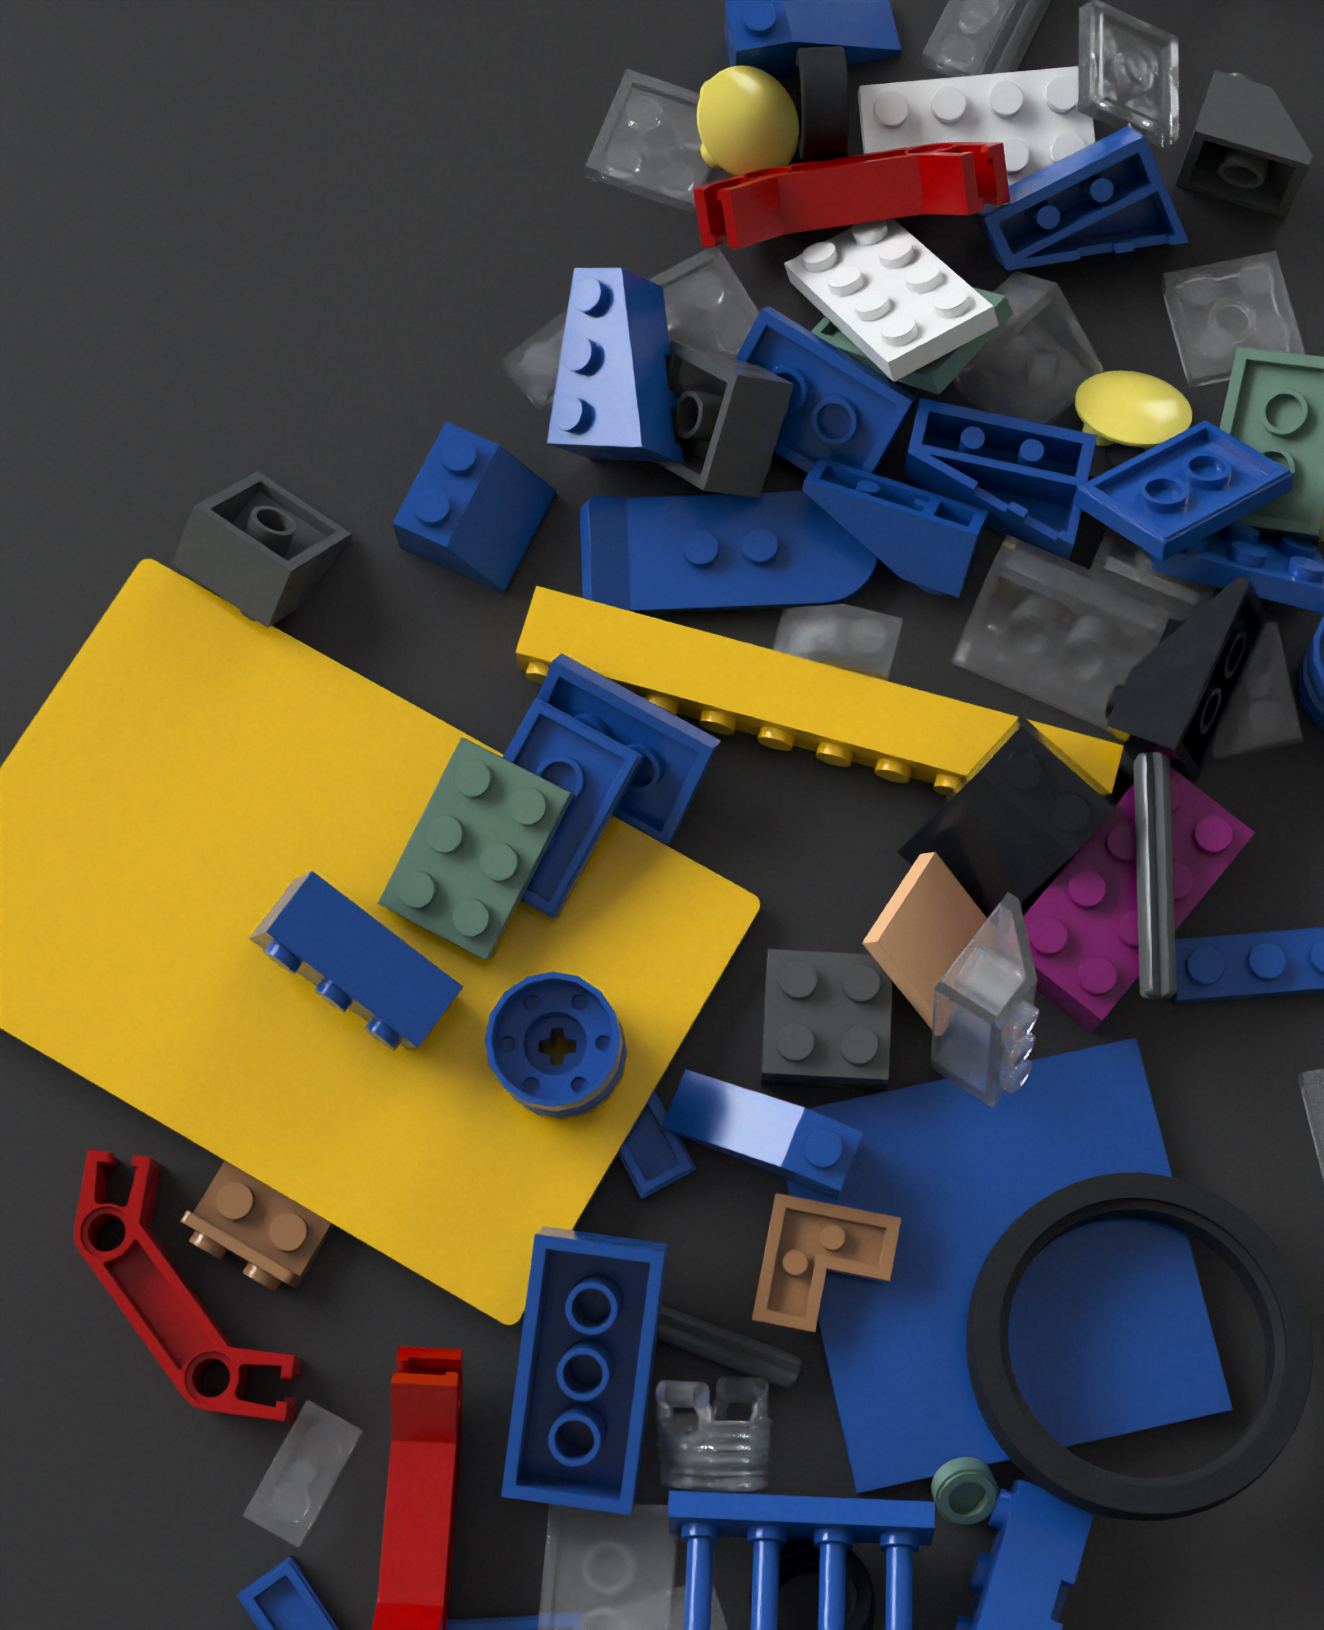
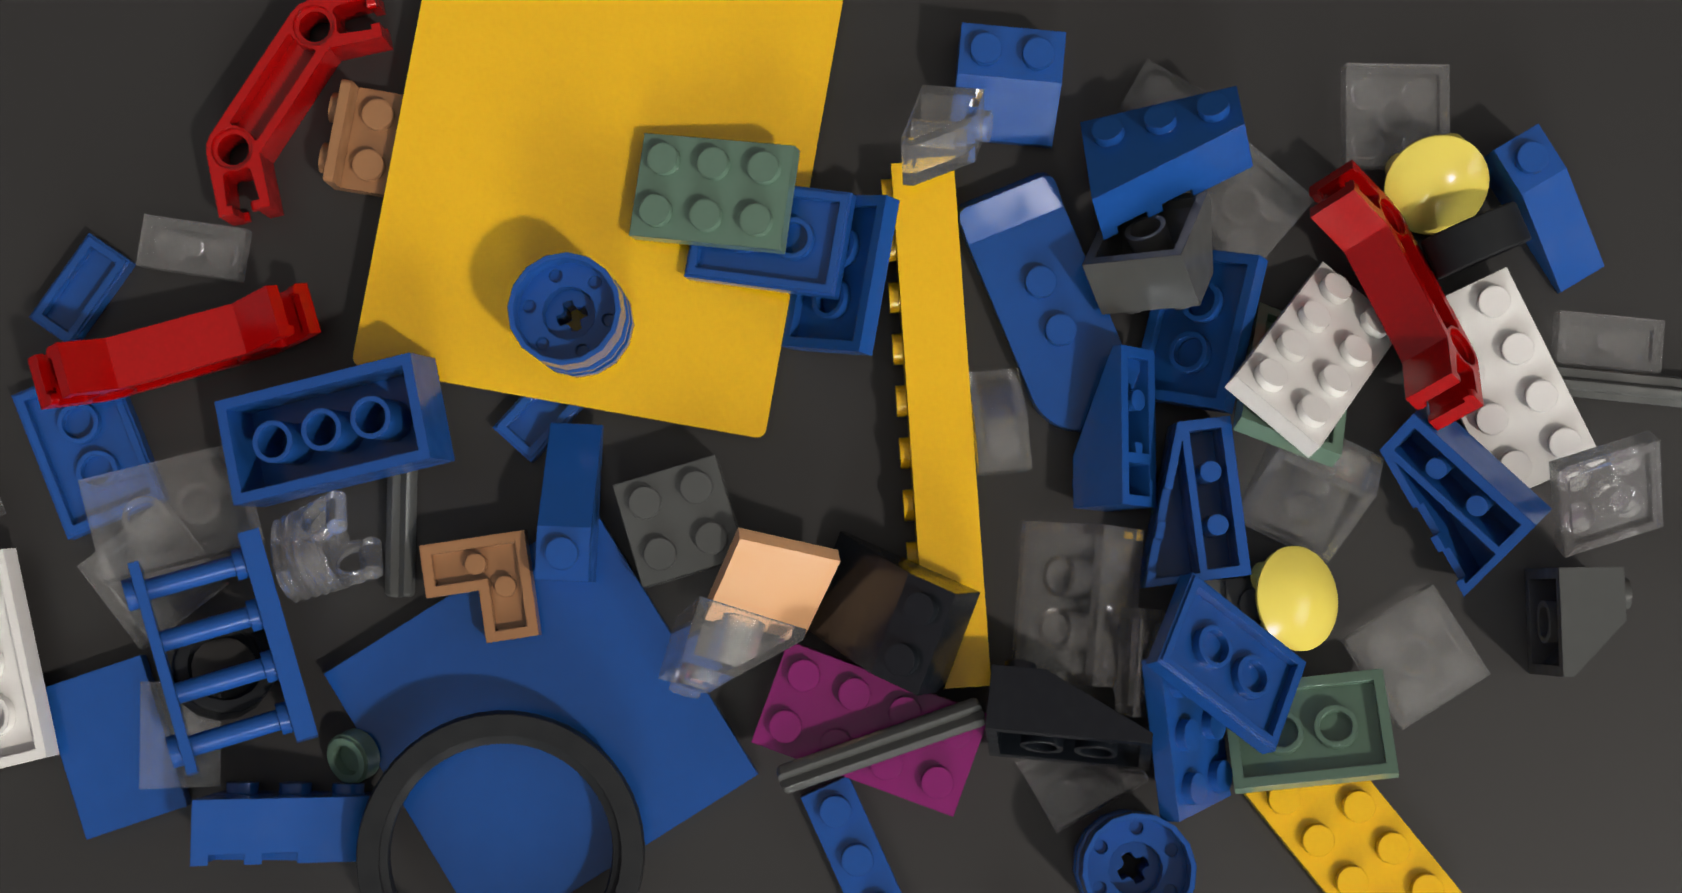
camera: 70 degrees right, 10 degrees up
(355, 962) = (583, 132): blue wedge -> none
(503, 580) = (944, 132): none -> clear slope

